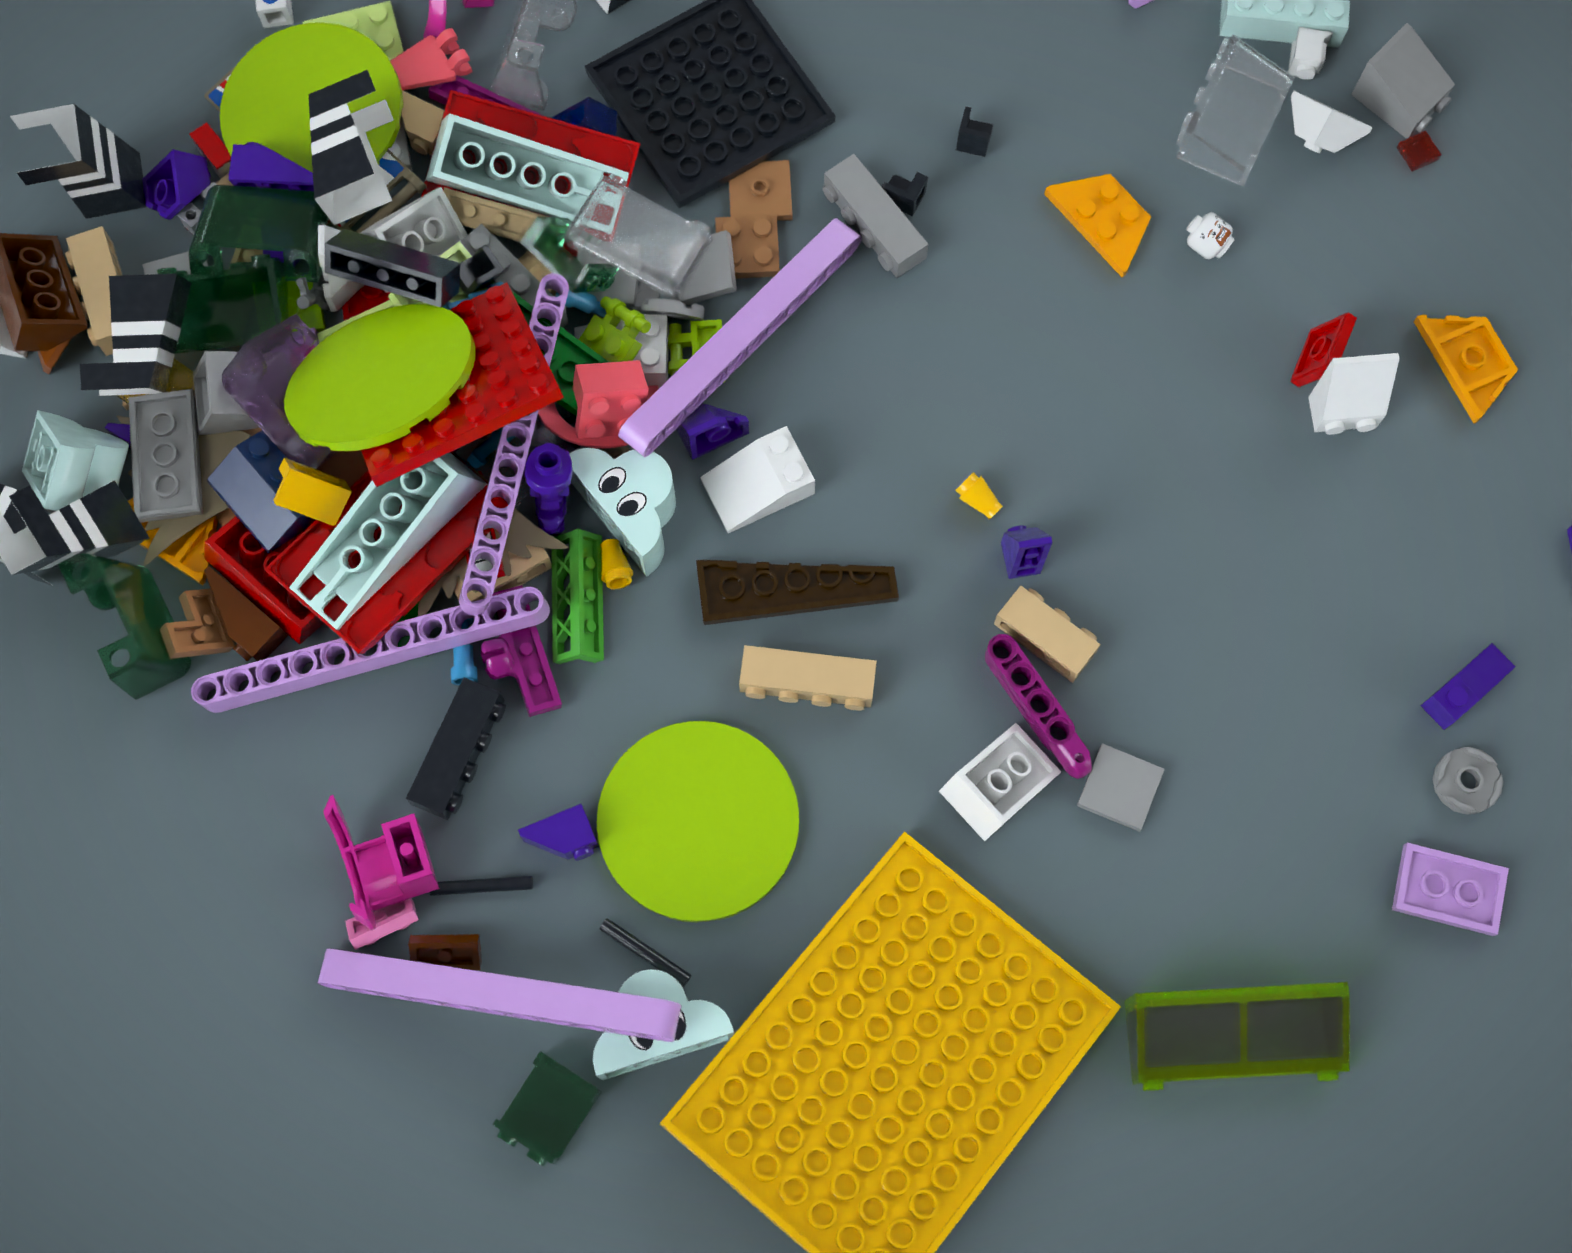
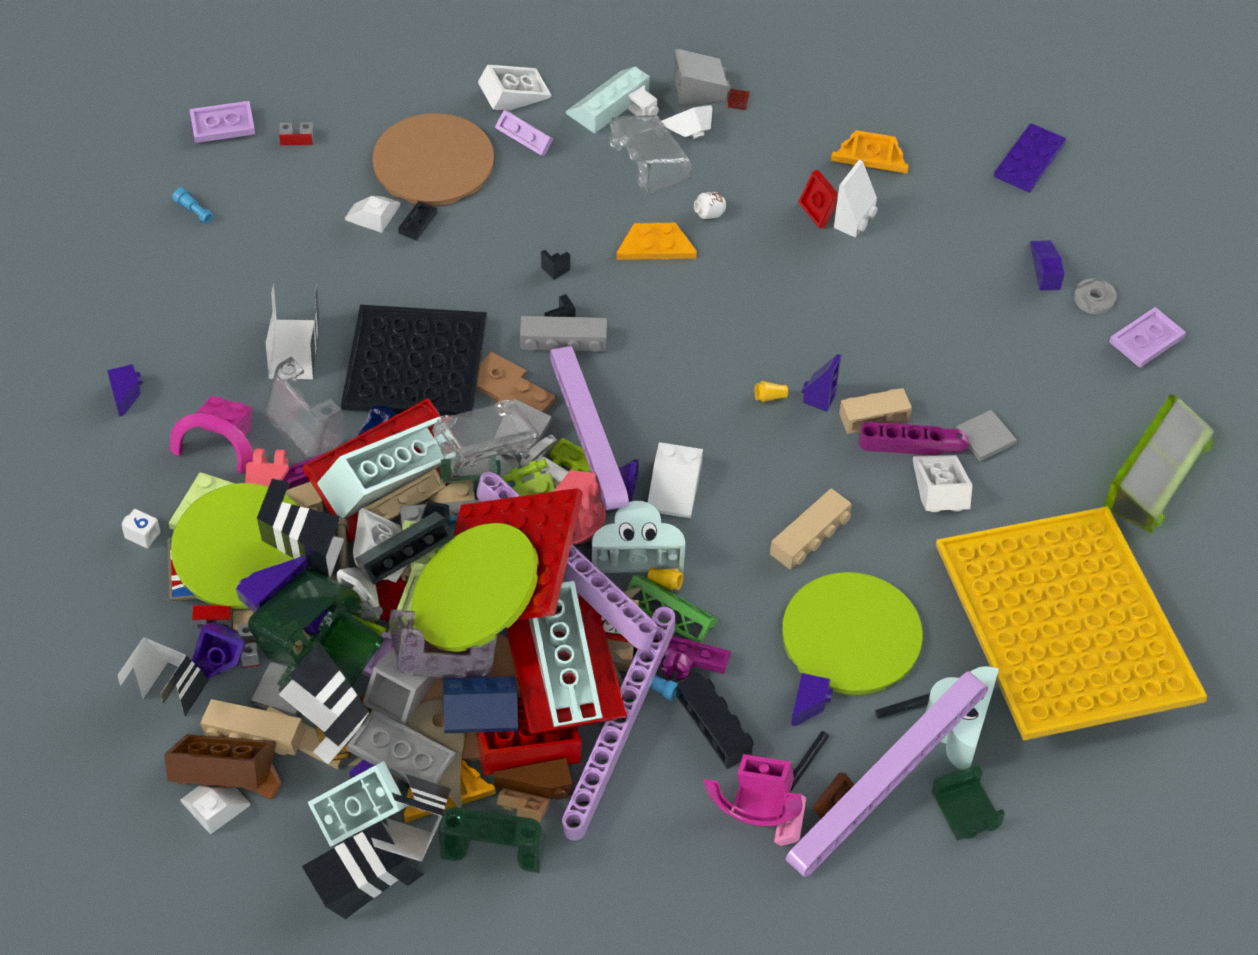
camera: 55 degrees left, 20 degrees down
(311, 492) = (508, 673): yellow panel -> none
(549, 476) = (602, 554): dark purple animal -> none
(765, 590) = (742, 518): dark brown wing -> none

